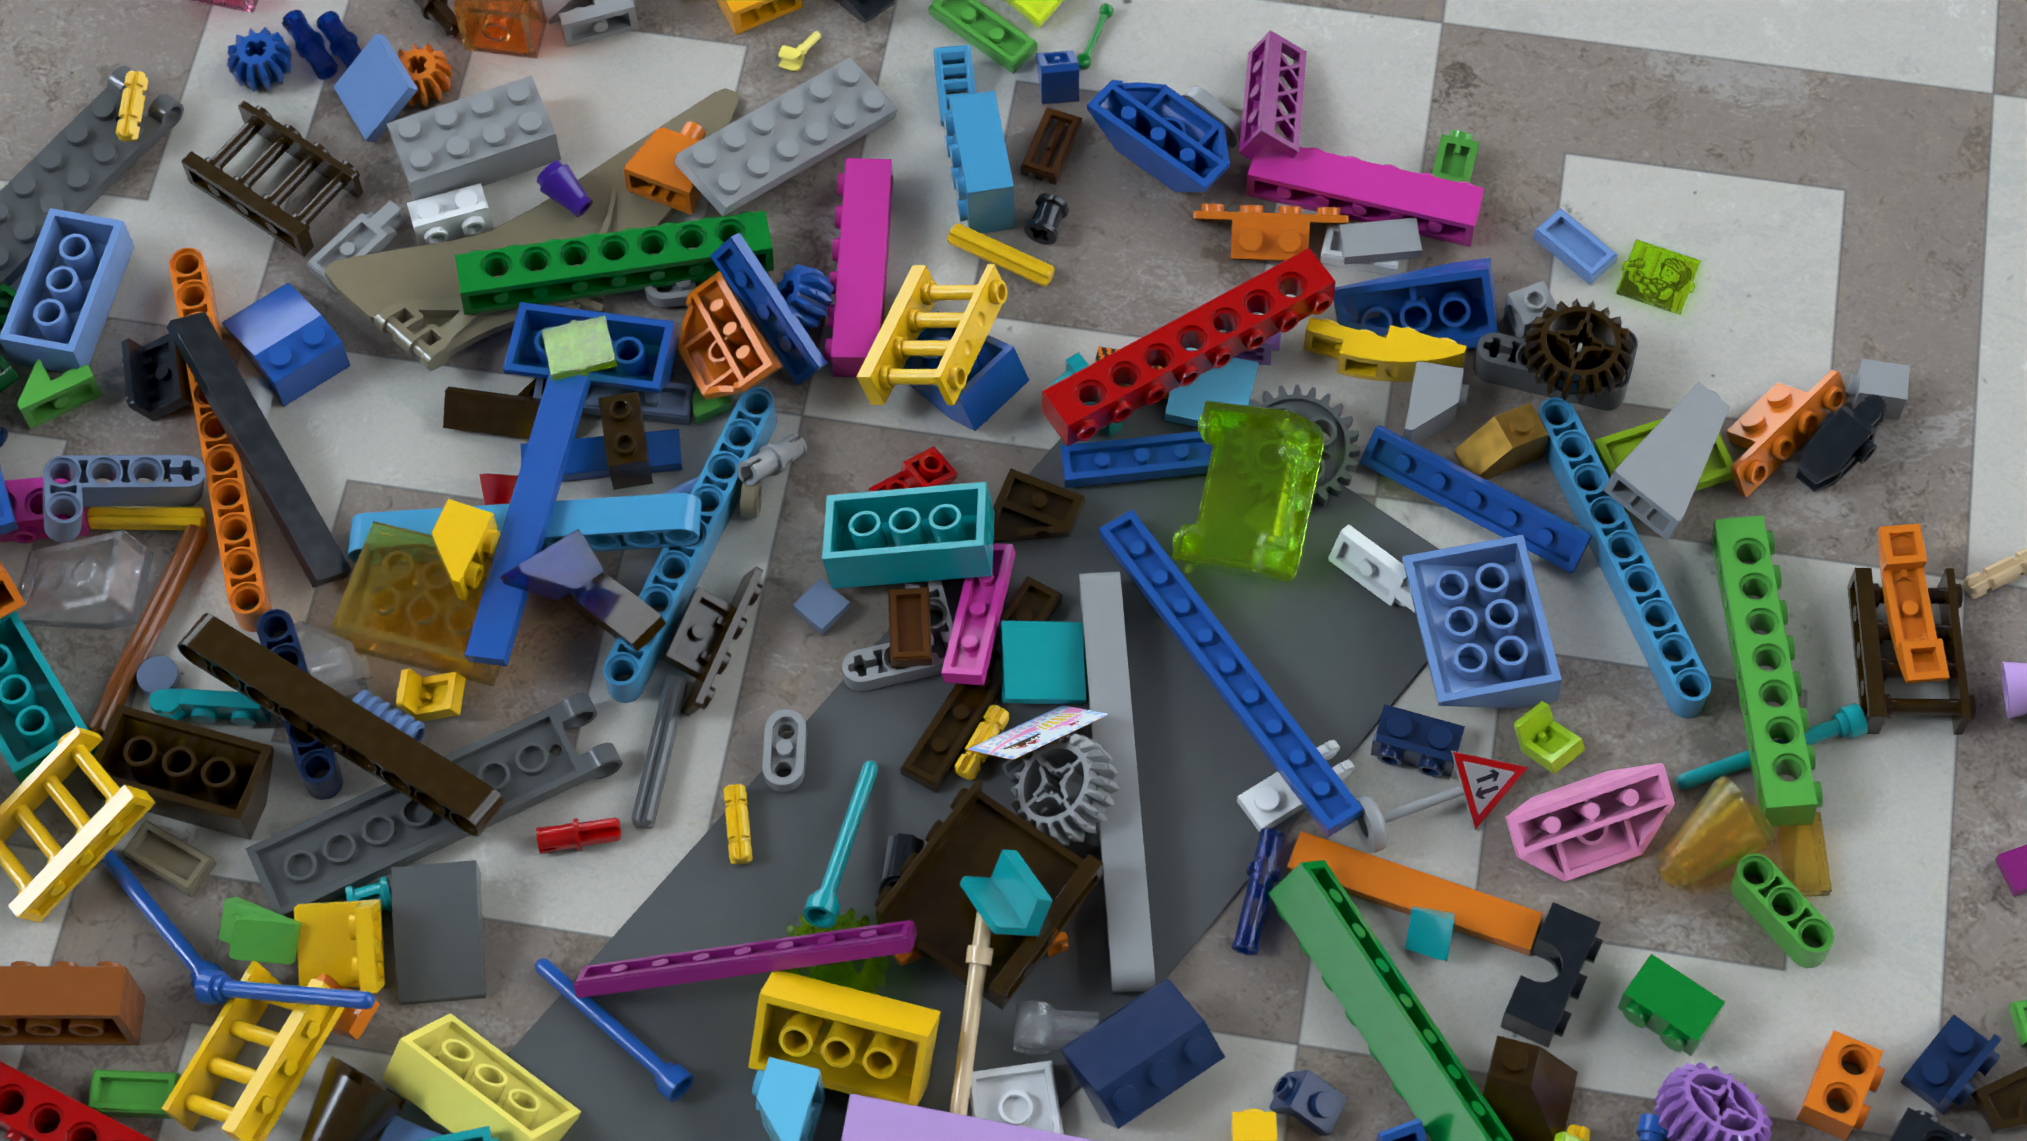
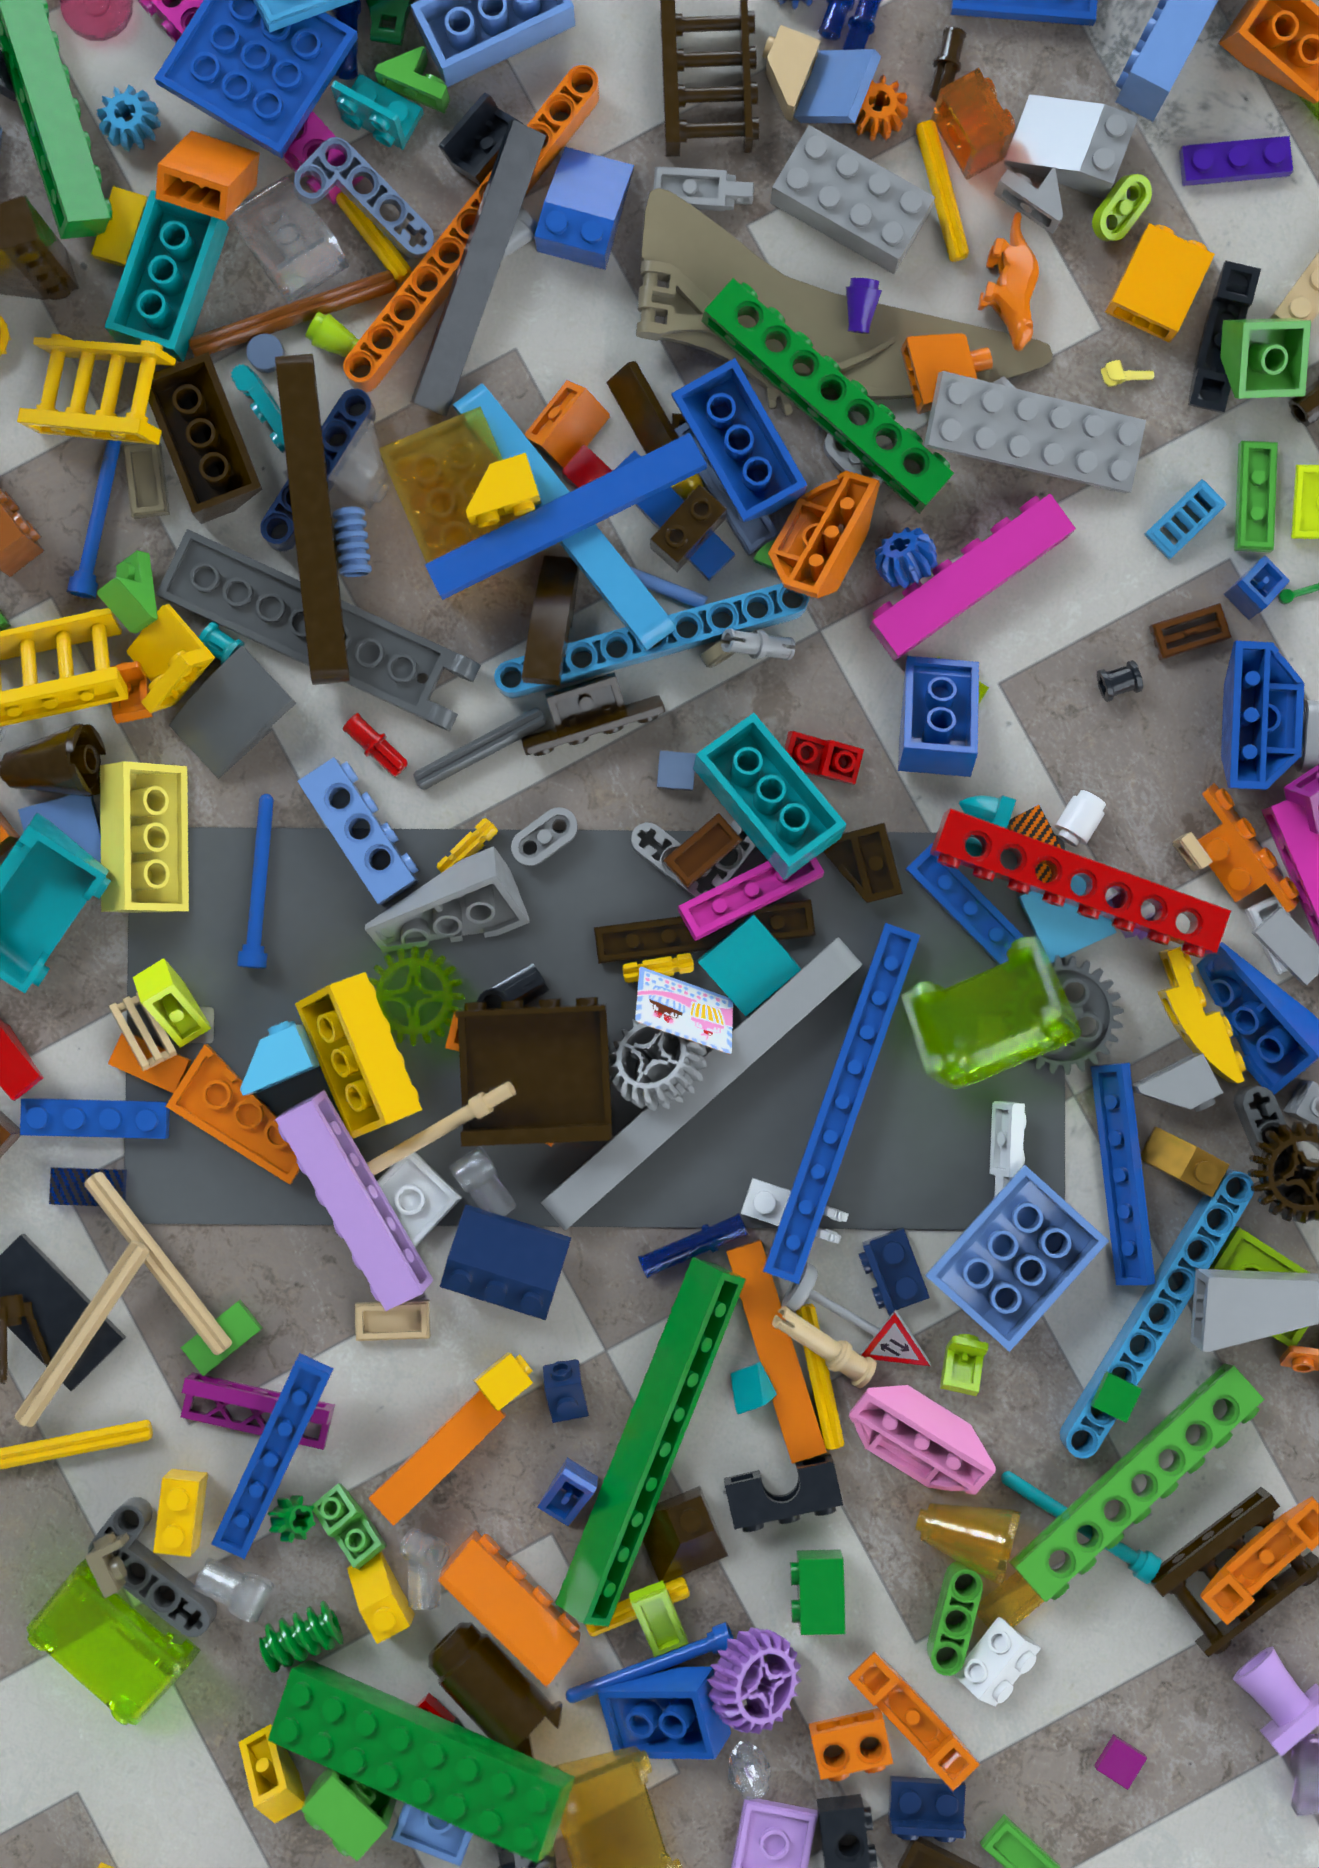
camera: 50 degrees right, 25 degrees up
(51, 435) = (377, 111): none -> teal bracket
(190, 607) = (330, 335): none -> lime cone
(216, 987) = (71, 602): blue piece -> none
(325, 114) = (789, 65): none -> tan slope
(430, 696) = (394, 555): yellow bracket -> none
(447, 471) = (567, 423): none -> orange panel
(450, 215) = (779, 235): white bracket -> none
(546, 83) = (942, 191): none -> yellow axle
(557, 569) = (538, 574): clear blue slope -> none
(578, 348) = (726, 436): clear neon green piece -> none
(587, 424) = (687, 486): none -> yellow hinge
(653, 77) = (1014, 286): none -> orange animal
(659, 915) = (320, 789): none -> medium blue brick
(746, 959) = (361, 946): magenta tile -> none
(768, 309) = (873, 543): blue tile -> none
(781, 861) = (461, 901): none -> light grey wedge
(823, 905) = (440, 965): teal piece -> none
(912, 314) = (948, 651): yellow fence -> none
(979, 162) = (1124, 596): dark azure brick -> none
(1001, 254) = (1063, 670): yellow axle -> none
(1011, 899) = (531, 1096): teal panel -> none
(1134, 317) = (1080, 818): none -> white brick
(1237, 261) = (1192, 852): none -> tan tile
(1456, 835) = (837, 1354): none -> tan pin
(1465, 870) = (822, 1388): none -> yellow axle
(1670, 626) = (1116, 1396): none -> green tile
(1851, 901) = (997, 1662): none -> white bracket
(1860, 1016) = (914, 1719): none -> orange slope

